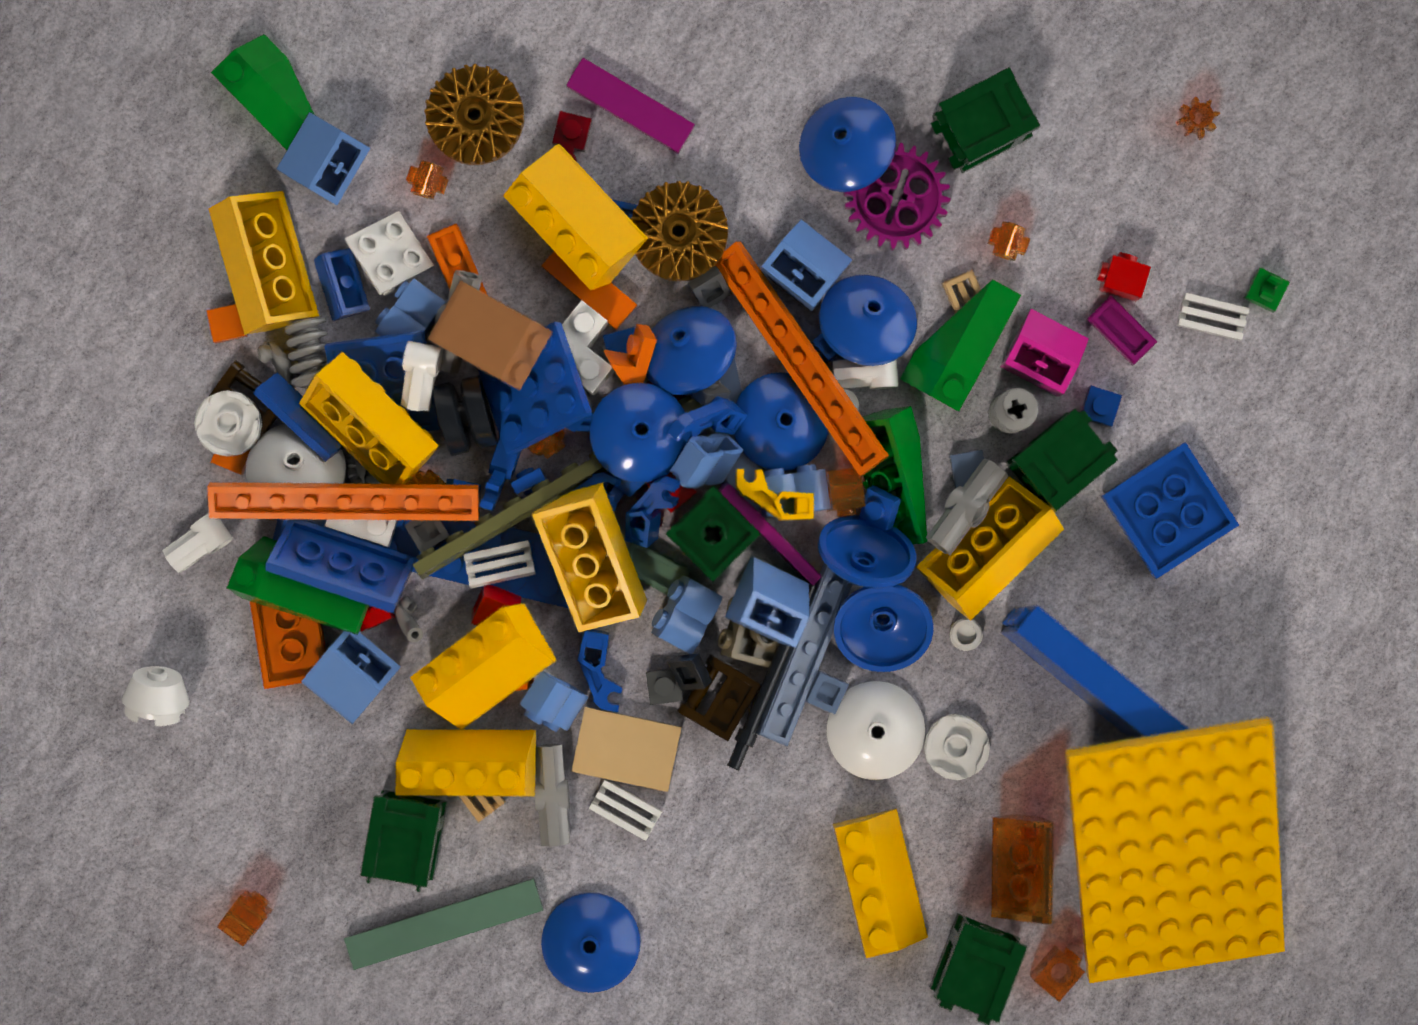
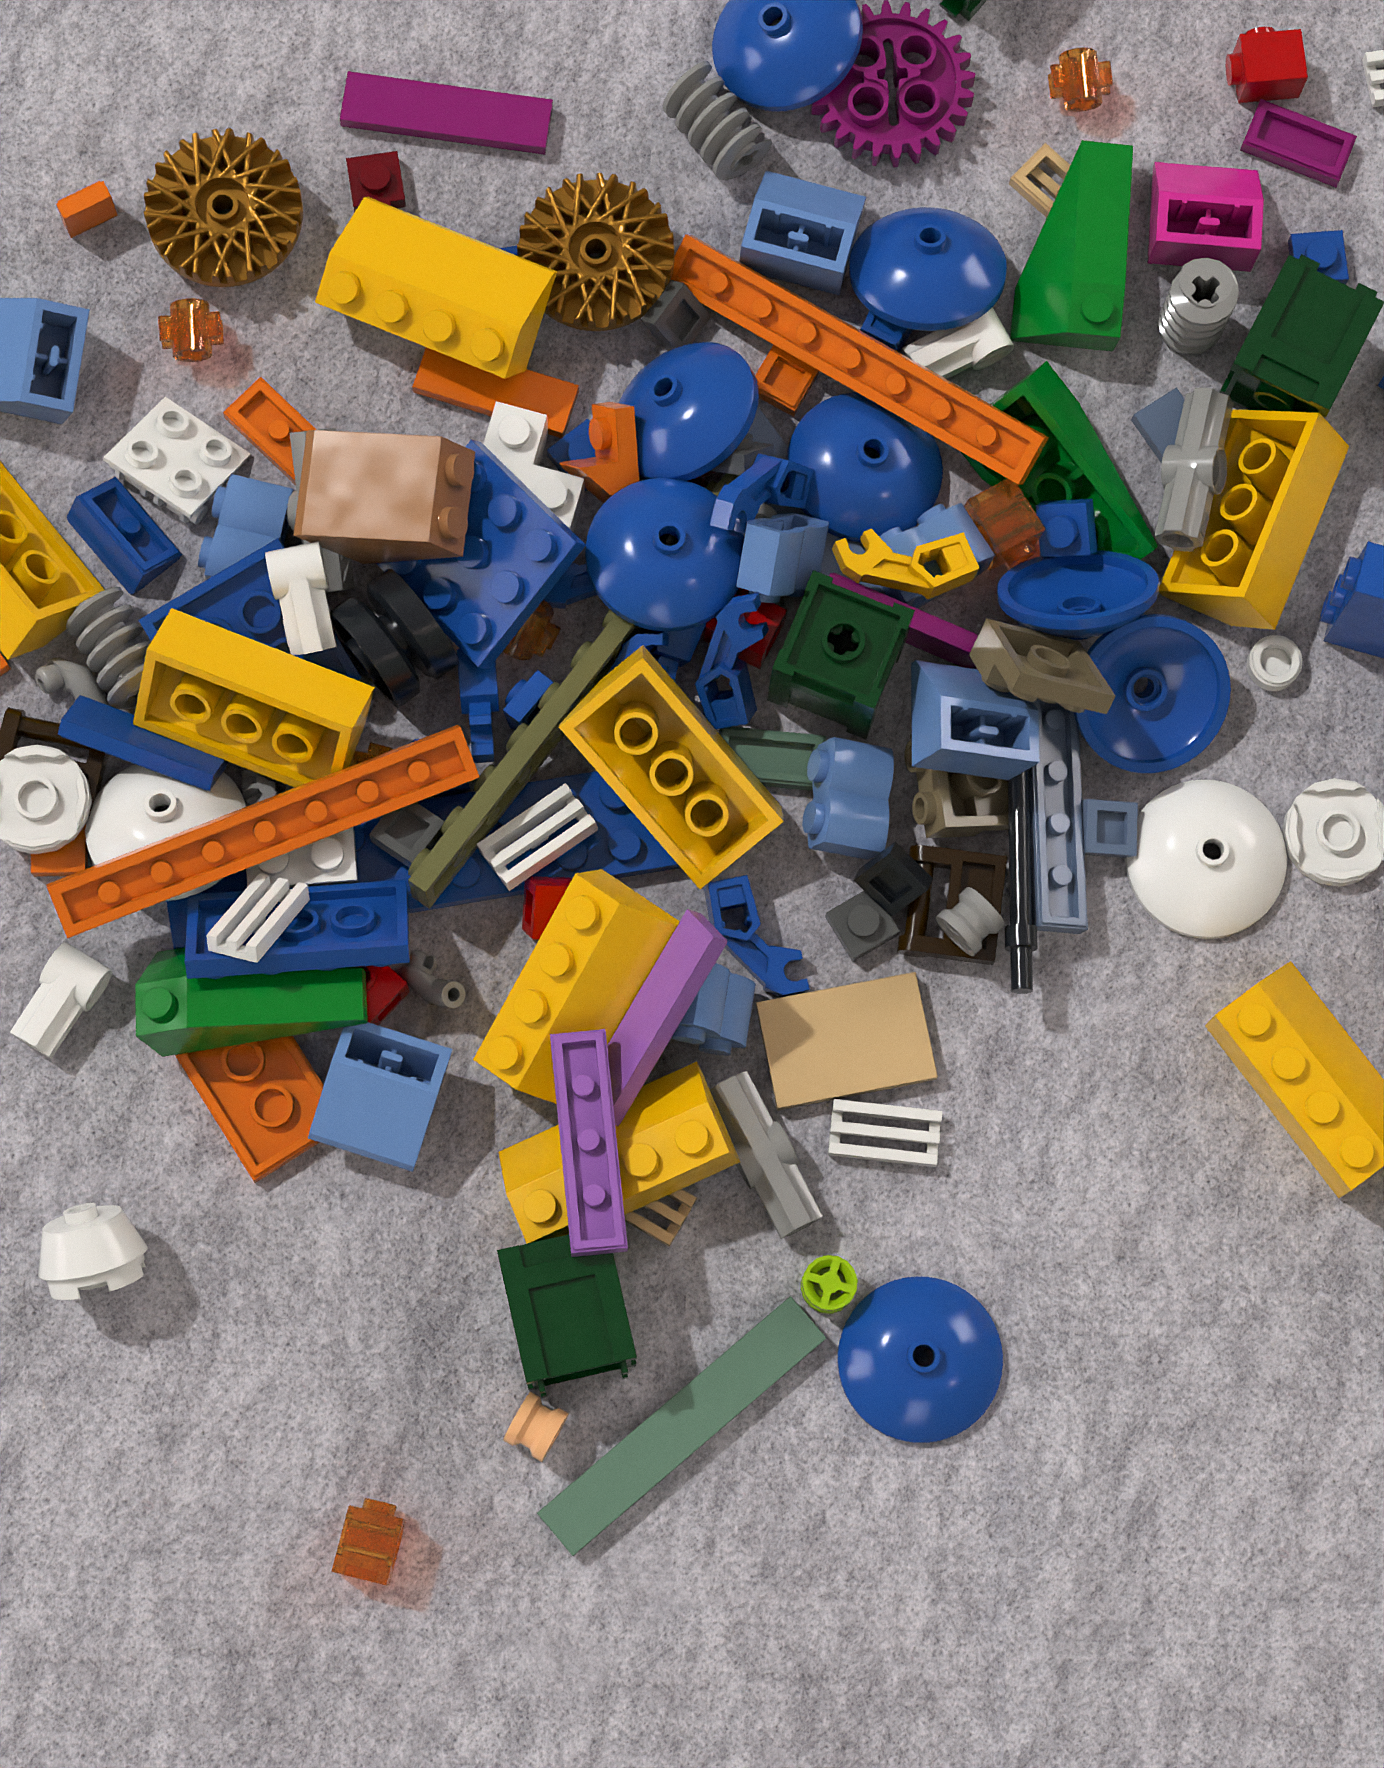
camera: 25 degrees left, 10 degrees down
(315, 547) = (249, 916): none -> white tile
(362, 893) = (535, 1426): none -> light nougat wheel
(396, 80) = (86, 208): none -> orange tile
(449, 757) = (588, 1143): none -> medium lavender tile
(516, 701) = (661, 1006): none -> medium lavender tile
(552, 886) = (832, 1275): none -> lime wheel
(721, 716) = (970, 921): none -> light grey wheel
(755, 350) = (784, 380): none -> orange tile
(781, 178) = (712, 125): none -> light grey piece
(820, 595) = (1040, 667): none -> dark tan plate

